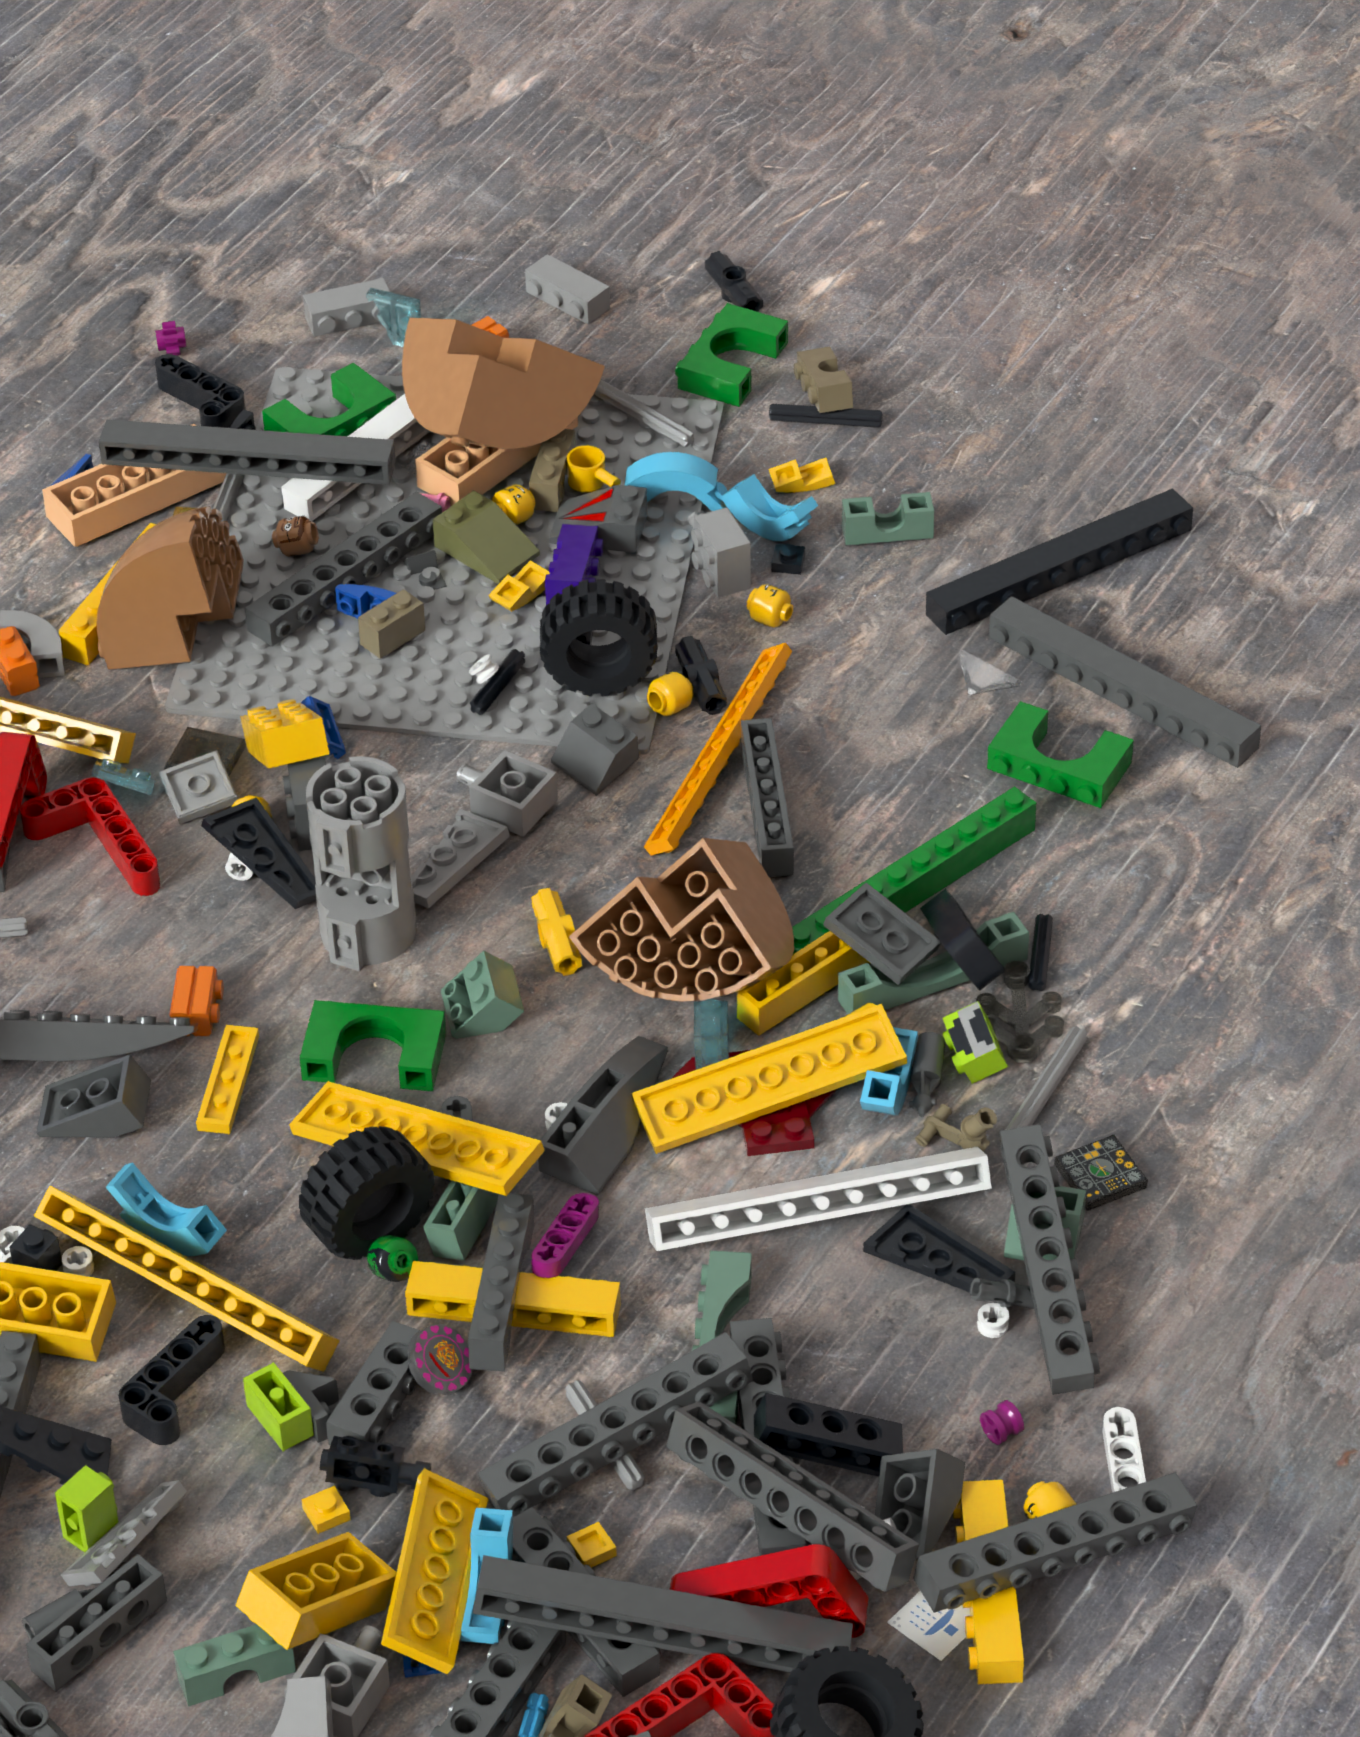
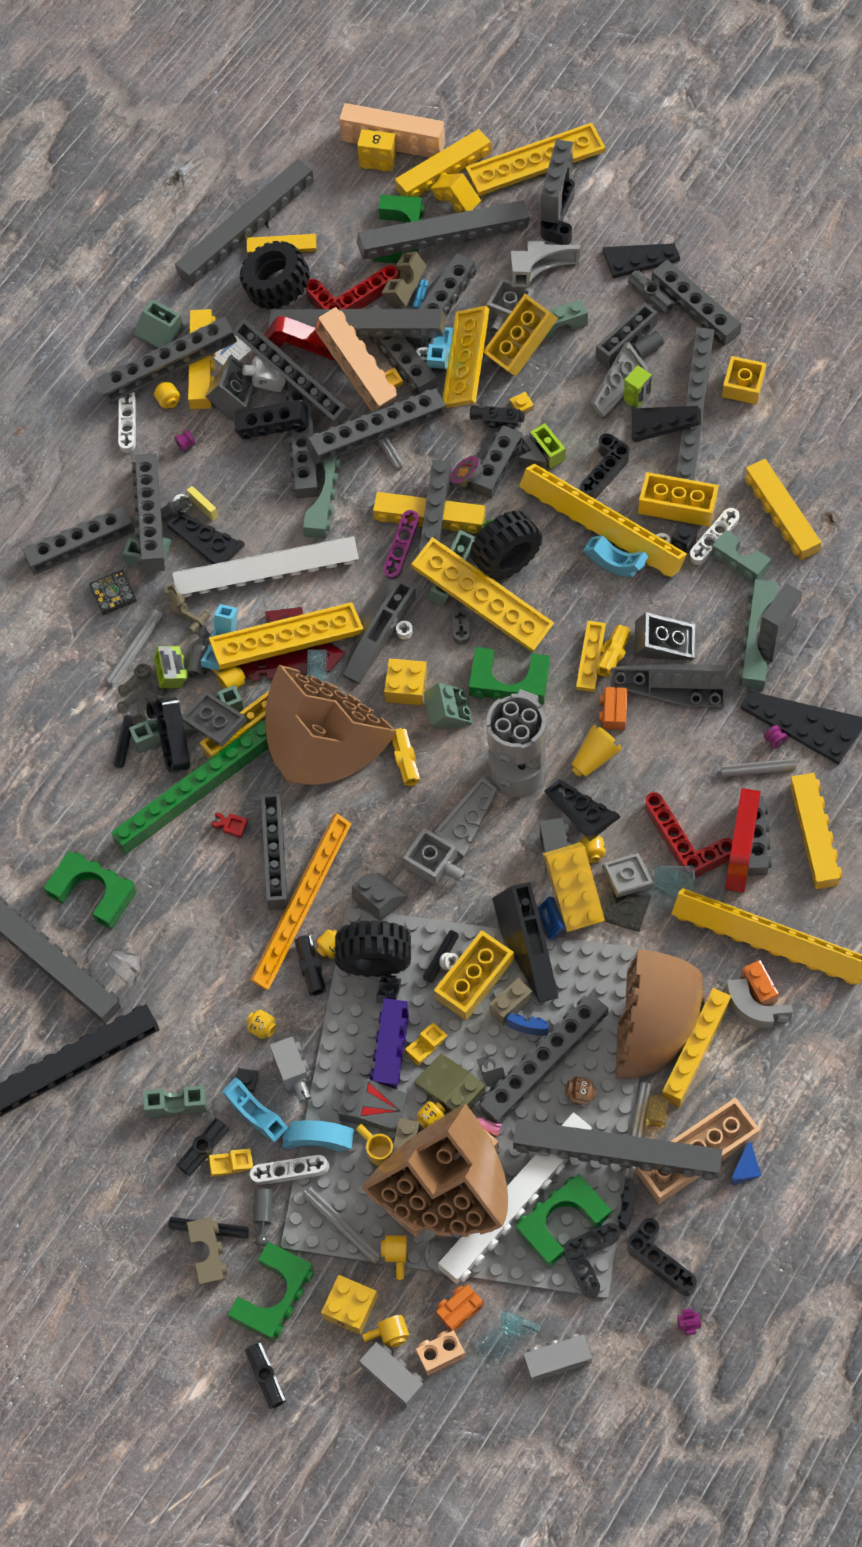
camera: 175 degrees left, 20 degrees up
(187, 1078) = (613, 650): none -> yellow piece
(230, 933) = (594, 752): none -> yellow cone
(310, 393) = (581, 1256): none -> black beam
(368, 705) = (524, 935): none -> black wedge
(445, 645) = (473, 975): none -> yellow brick
(507, 305) = (443, 1357): none -> light nougat brick
(555, 1030) = (405, 681): none -> yellow brick
(568, 323) = (392, 1331): none -> yellow piece
(625, 342) = (349, 1304): none -> yellow brick
(661, 1518) = (355, 360): none -> light nougat brick
(751, 425) = (262, 1215): none -> dark grey wheel
(755, 461) = (289, 1166): none -> white beam
(841, 839) = (233, 825): none -> red plate
(843, 481) = (211, 1137): none -> black piece
(952, 1310) = (202, 503): none -> light yellow tile
(1086, 1645) = (158, 324): none -> sand green slope
(1179, 1245) = (73, 548): none -> dark grey brick

